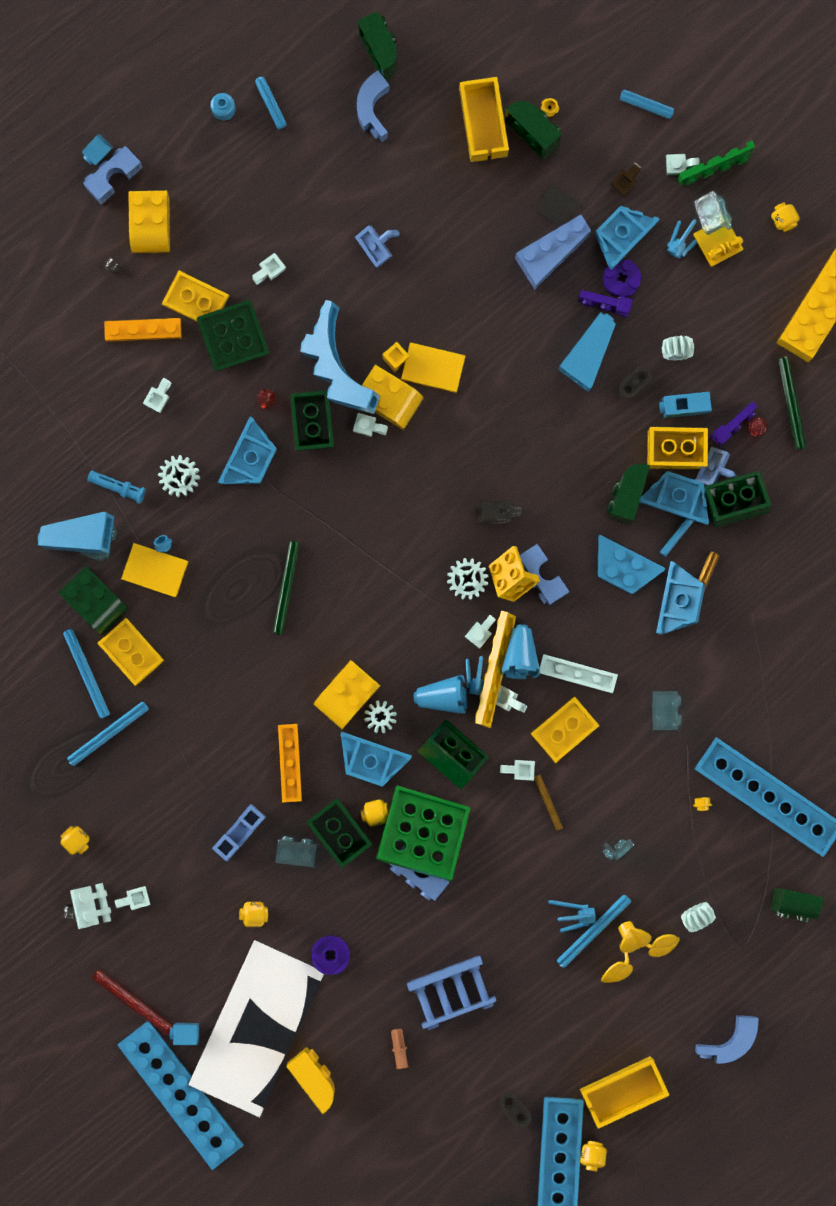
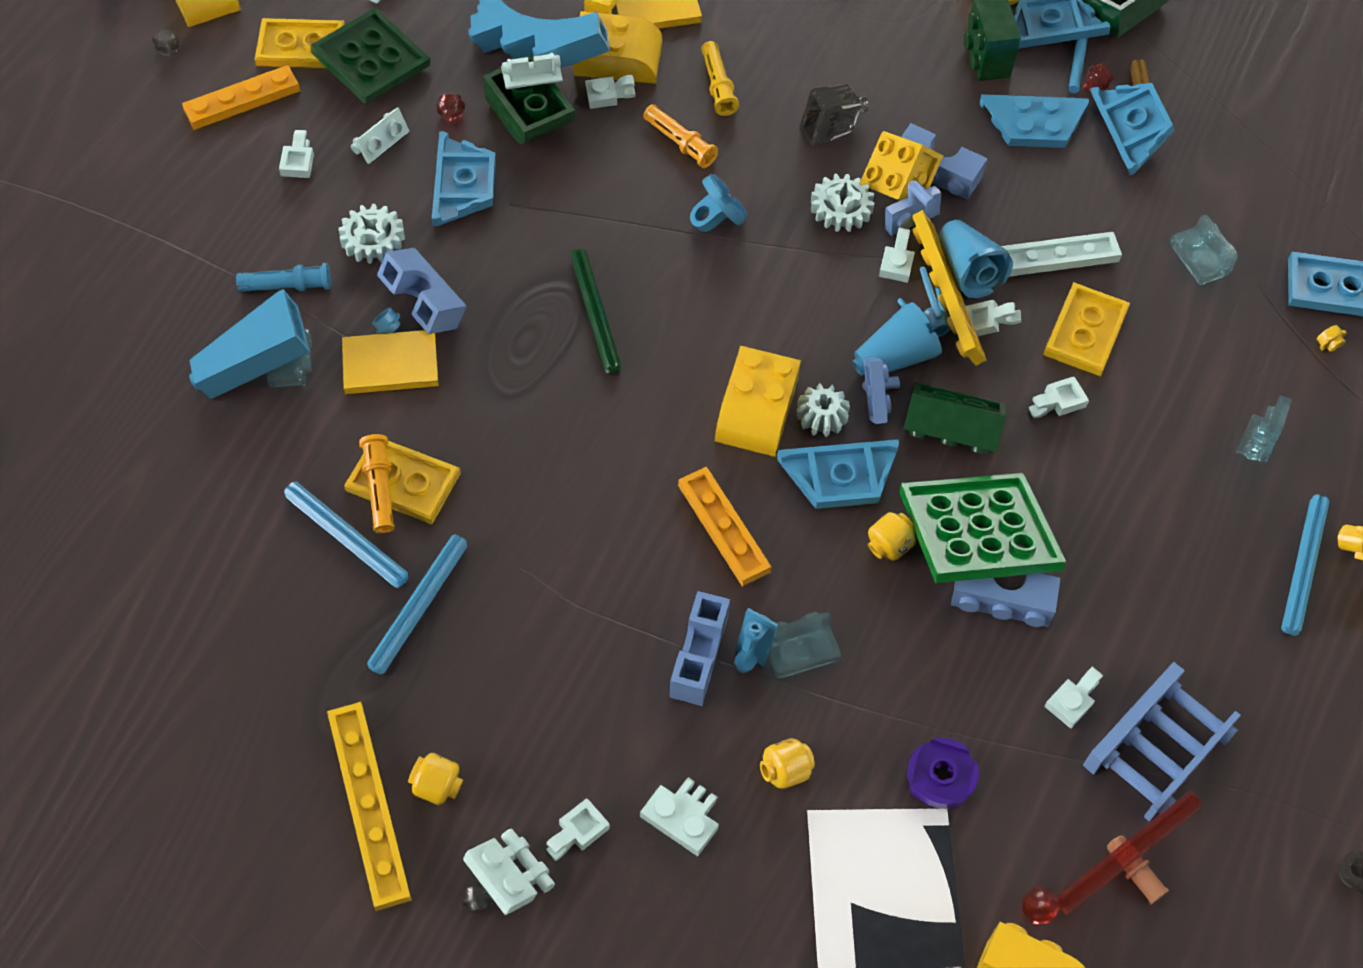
camera: 25 degrees left, 25 degrees down
(37, 837) = (369, 807): none -> yellow plate
(93, 600) = (312, 428): dark green brick -> none
(116, 646) = (377, 470): none -> light orange pin
(190, 518) = (437, 304): none -> medium blue arch
(190, 914) = (682, 815): none -> light aqua hinge
(222, 398) = (381, 136): none -> light aqua hinge
(268, 842) = (754, 641): none -> dark azure hinge
(318, 408) = (524, 73): none -> light aqua hinge
(339, 833) = (853, 581): dark green brick -> none
(340, 1043) = (1040, 906): none -> clear red plate
(394, 550) = (719, 204): none -> dark azure tile
(395, 1042) = (1128, 852): none -> clear red axle
(399, 491) = (688, 141): none -> light orange pin
(416, 716) = (875, 384): none -> medium blue plate
(420, 947) = (1072, 700): none -> light aqua plate
(439, 456) = (721, 86): none -> yellow pin
(507, 604) = (900, 214): none -> medium blue plate
(548, 802) = (1126, 426): pearl gold bar -> none
(585, 915) = (1277, 546): dark azure plant -> none
(681, 554) = (1098, 76): none -> clear red plate

